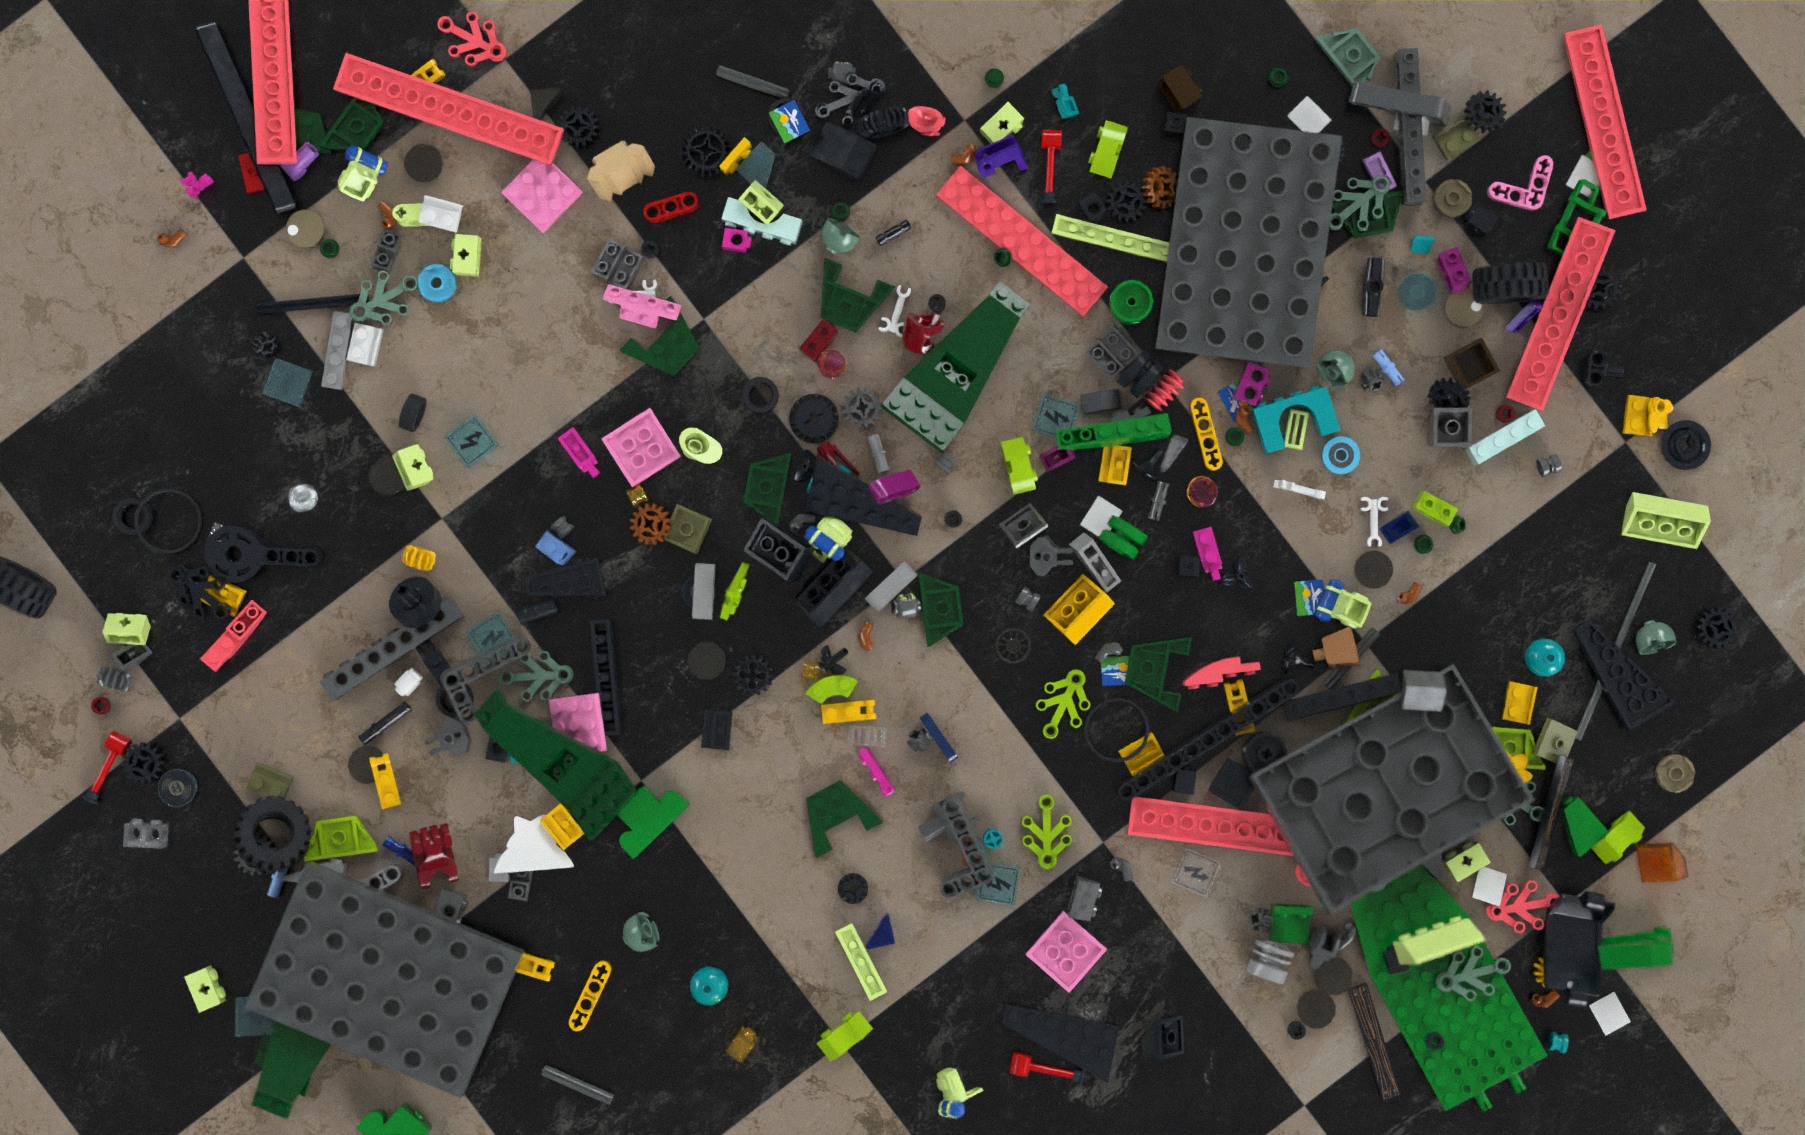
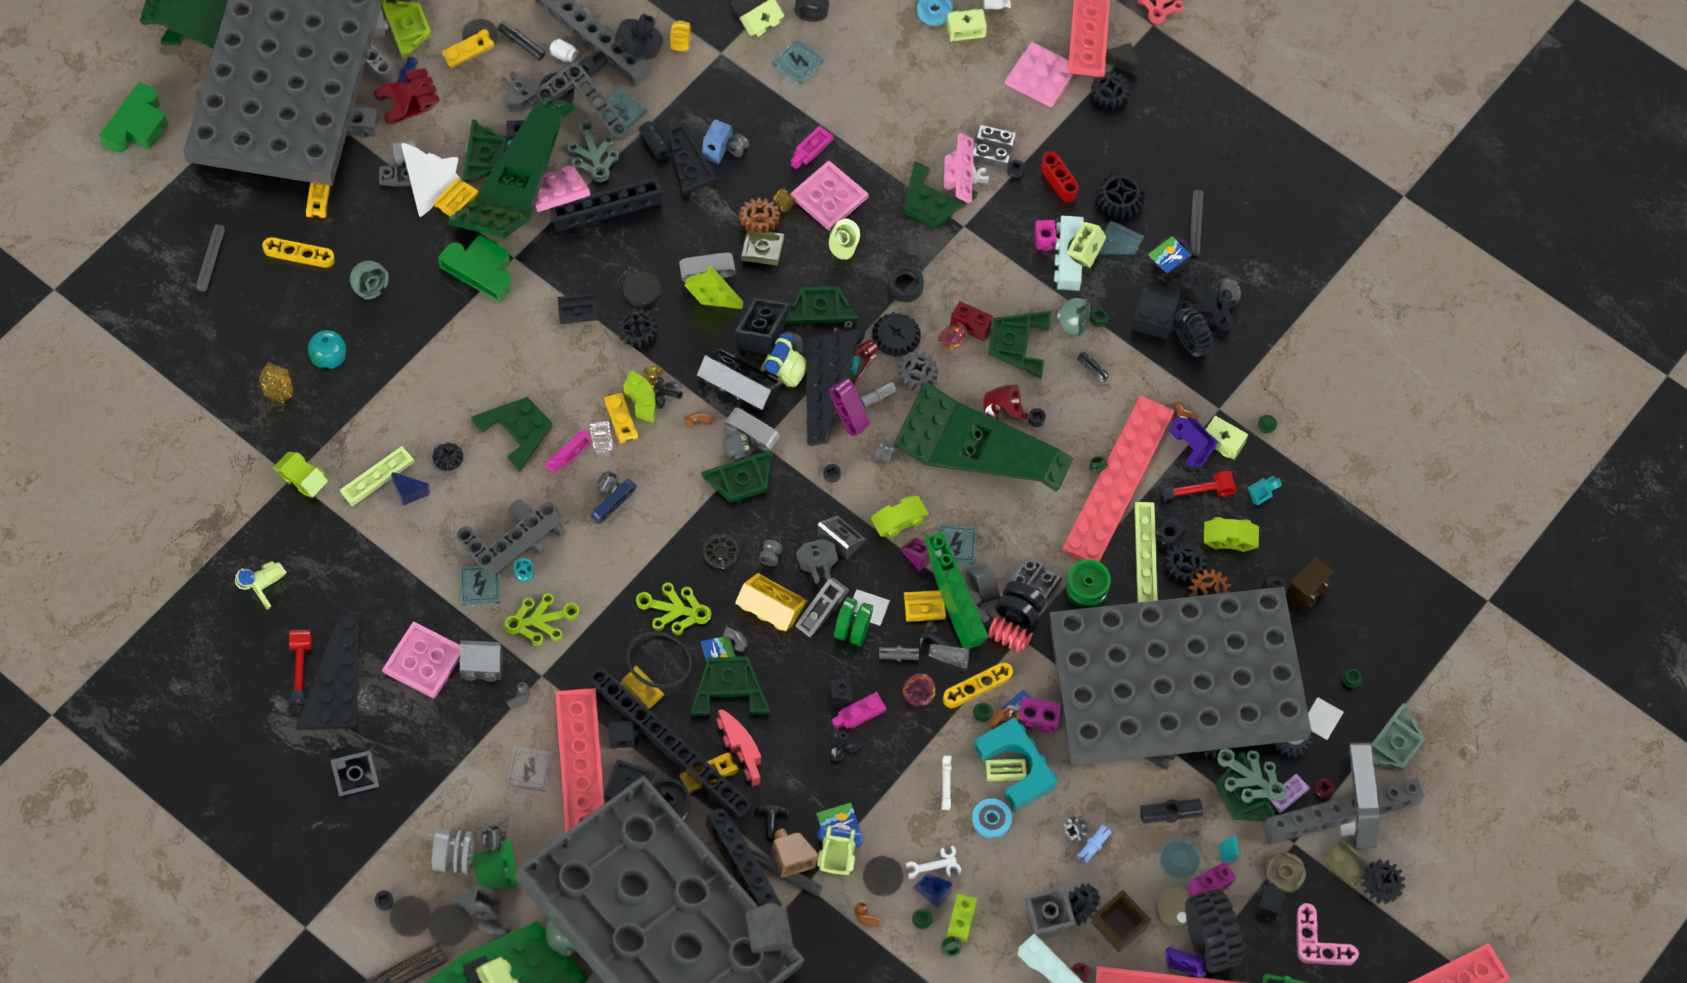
camera: 70 degrees right, 25 degrees down
(513, 787) = (483, 152): none -> dark green wing
(619, 169) = (1080, 125): tan slope -> none
(741, 151) = (1122, 217): yellow plate -> none
(893, 326) = (1022, 385): white bar -> none
(926, 120) = (1208, 371): coral hat -> none
(1336, 367) = (1080, 791): sand green cylinder -> none

